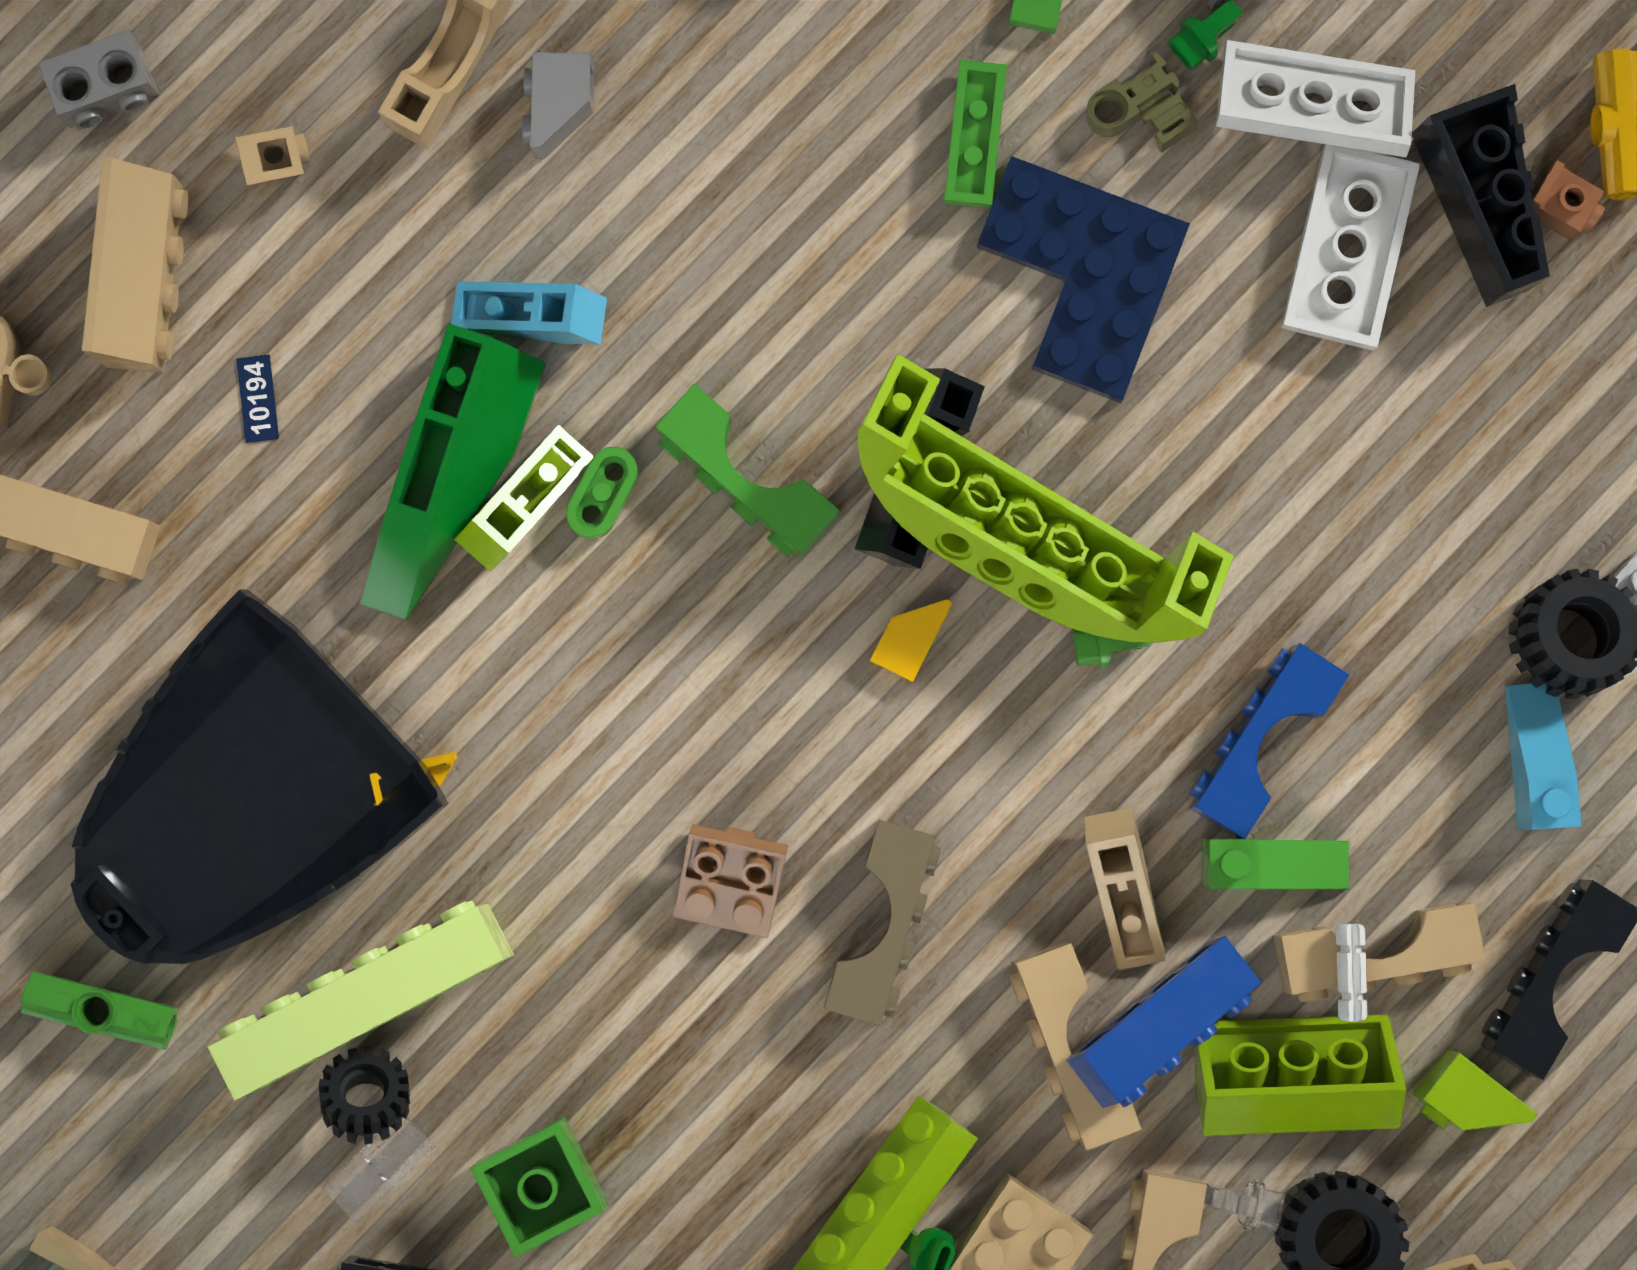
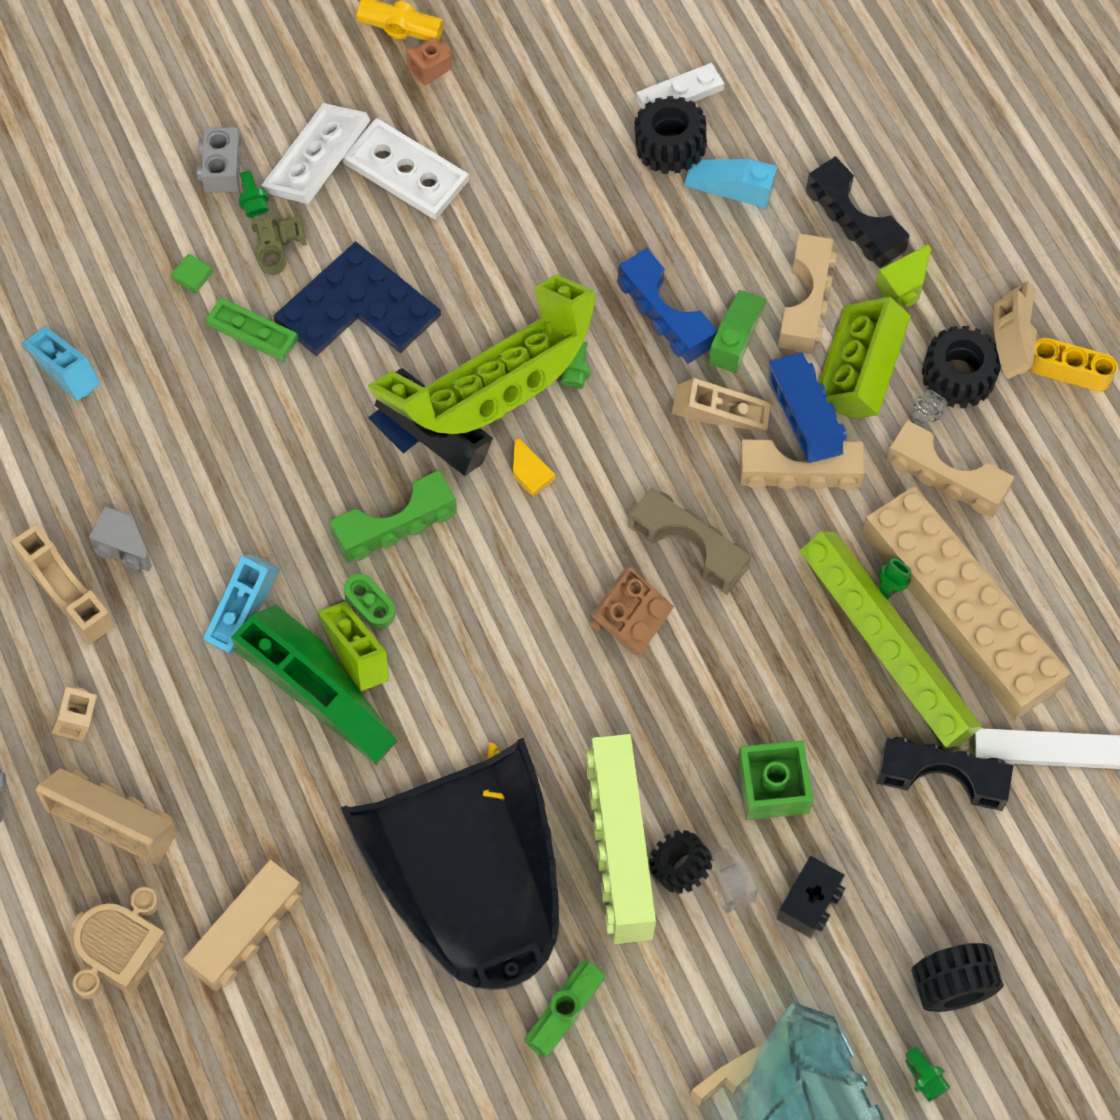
camera: 70 degrees left, 20 degrees down
(257, 398) = (220, 782): dark blue sticker -> none
(1351, 972) = (814, 302): white axle -> none
(1486, 191) = (409, 91): black wedge -> none

